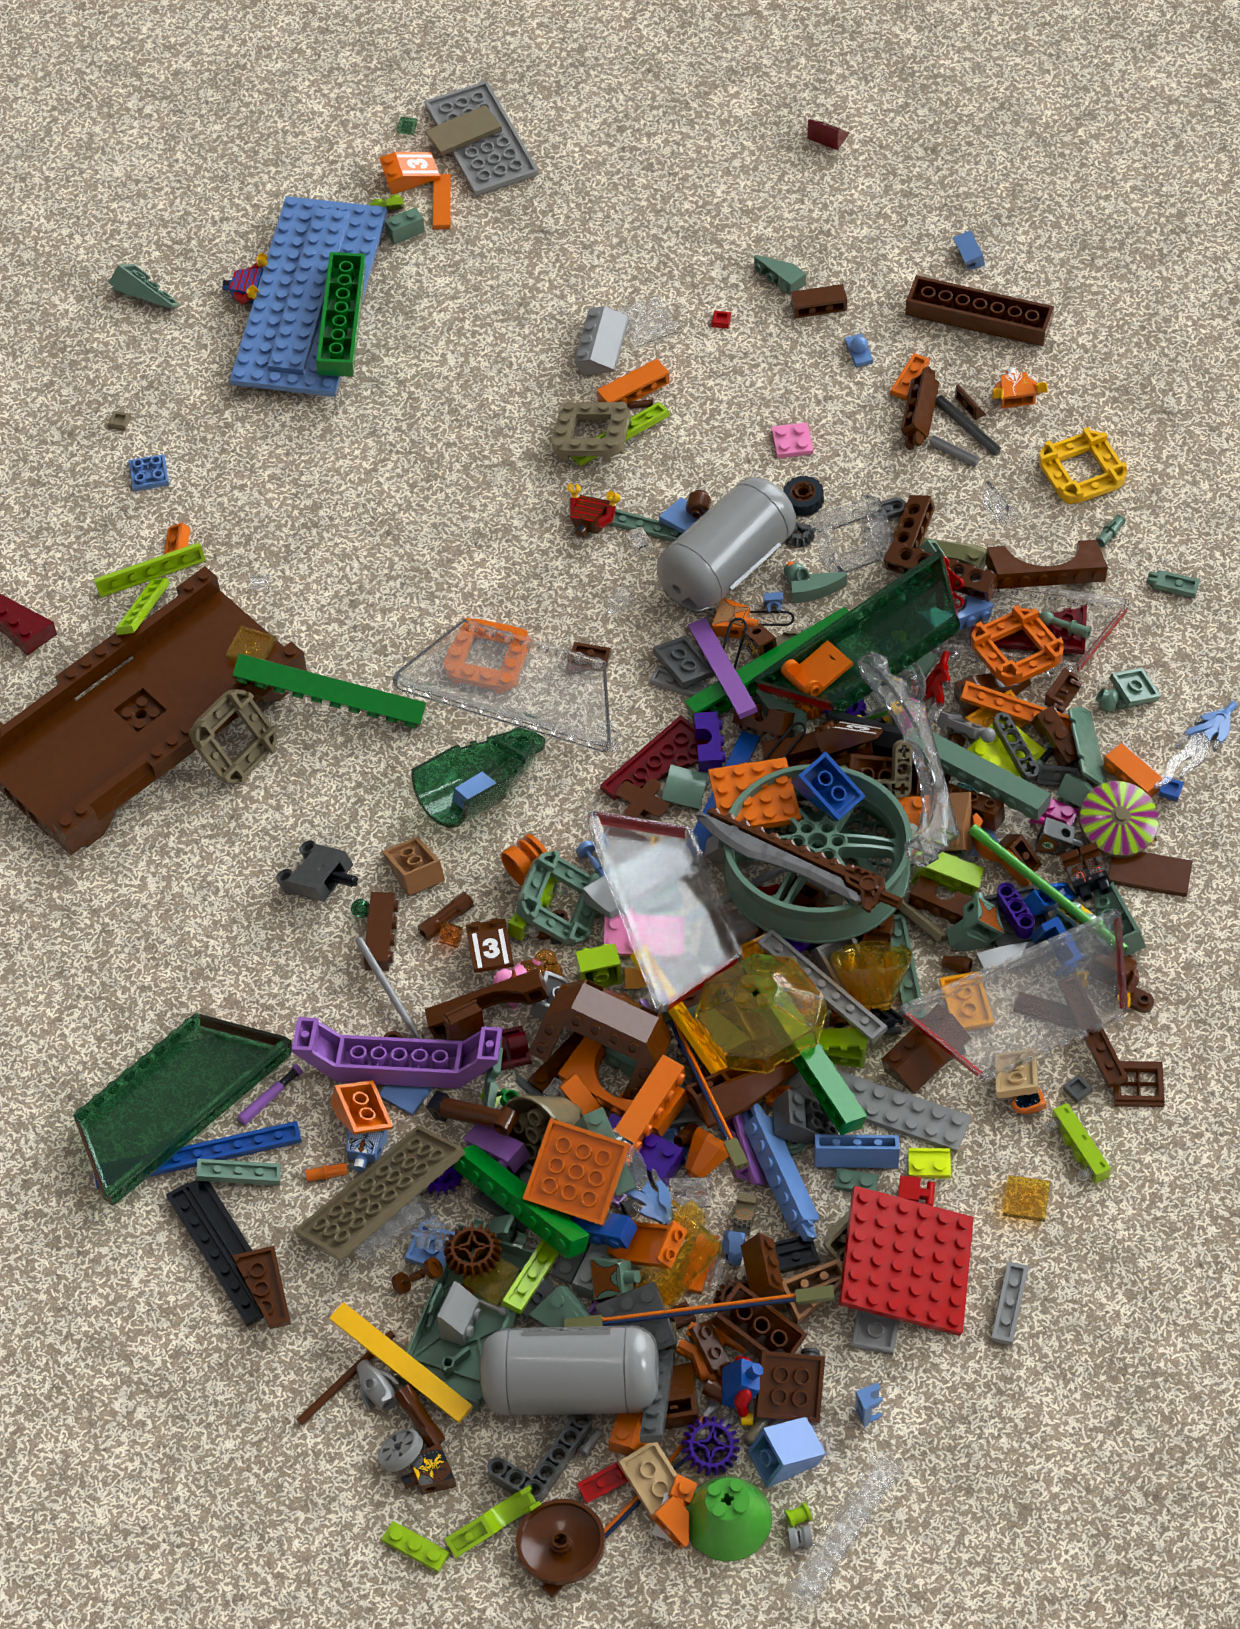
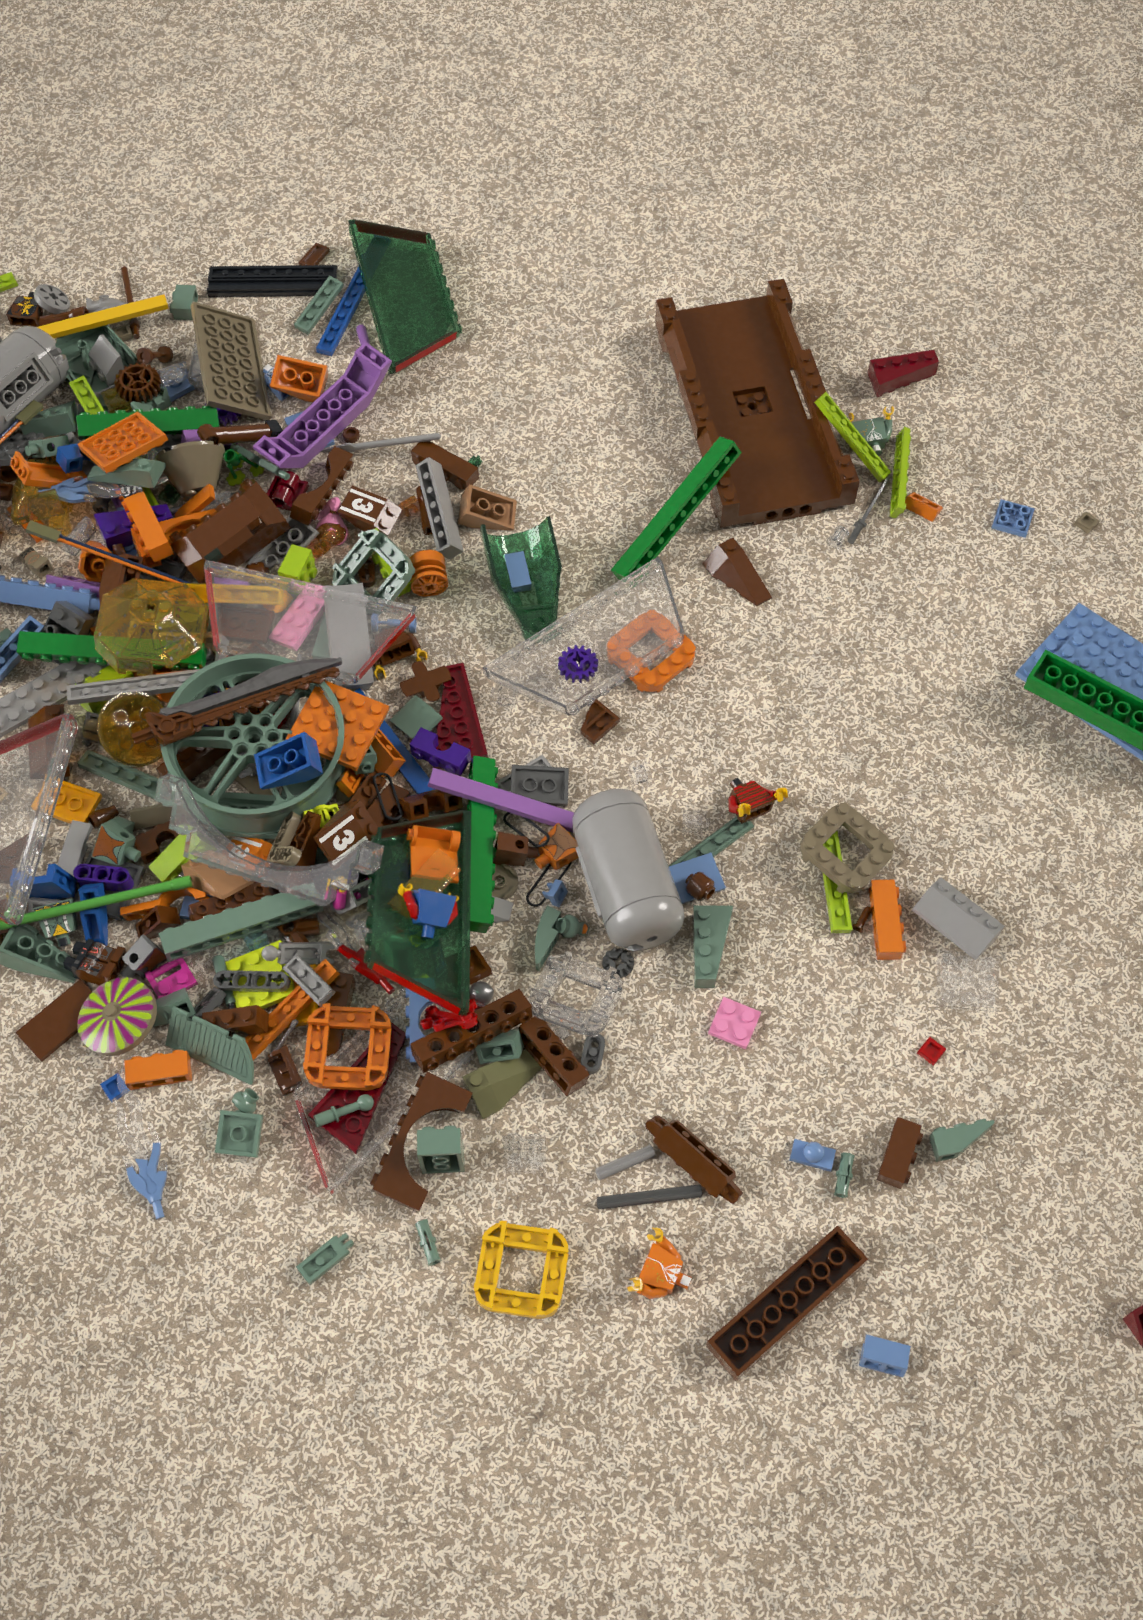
camera: 120 degrees right, 5 degrees up
(110, 607) = (875, 430): none -> sand green torso
(161, 1234) = (315, 255): none -> reddish brown tile
(203, 735) = (700, 439): dark tan plate -> none
(232, 574) = (860, 524): none -> dark grey sword
(251, 643) = (761, 487): clear yellow plate -> none
(264, 1281) = (225, 282): reddish brown wing -> none
(313, 1314) = (182, 299): none -> sand green brick
(318, 873) = (518, 442): dark grey piece -> none
(326, 1172) = (281, 350): orange axle -> none
(350, 640) = (733, 567): none -> reddish brown wedge
(443, 894) = (439, 508): none -> light grey brick
(463, 1021) = (314, 462): reddish brown piece -> none
(550, 681) = (569, 667): none -> dark purple gear
(721, 481) = (709, 939): none -> sand green wedge
(732, 1246) = (17, 541): medium blue rock -> none
(805, 495) = (657, 977): black wheel -> none
(847, 650) = (429, 877): none -> clear yellow windscreen
(860, 325) = (844, 1175): none -> sand green pin
(874, 625) = (429, 908): none -> blue torso
(911, 370) = (747, 1181): orange plate -> none
(968, 403) = (675, 1216): reddish brown slope -> none
(987, 698) = (309, 980): none -> light grey tile
(1045, 540) = (440, 1150): none -> sand green brick

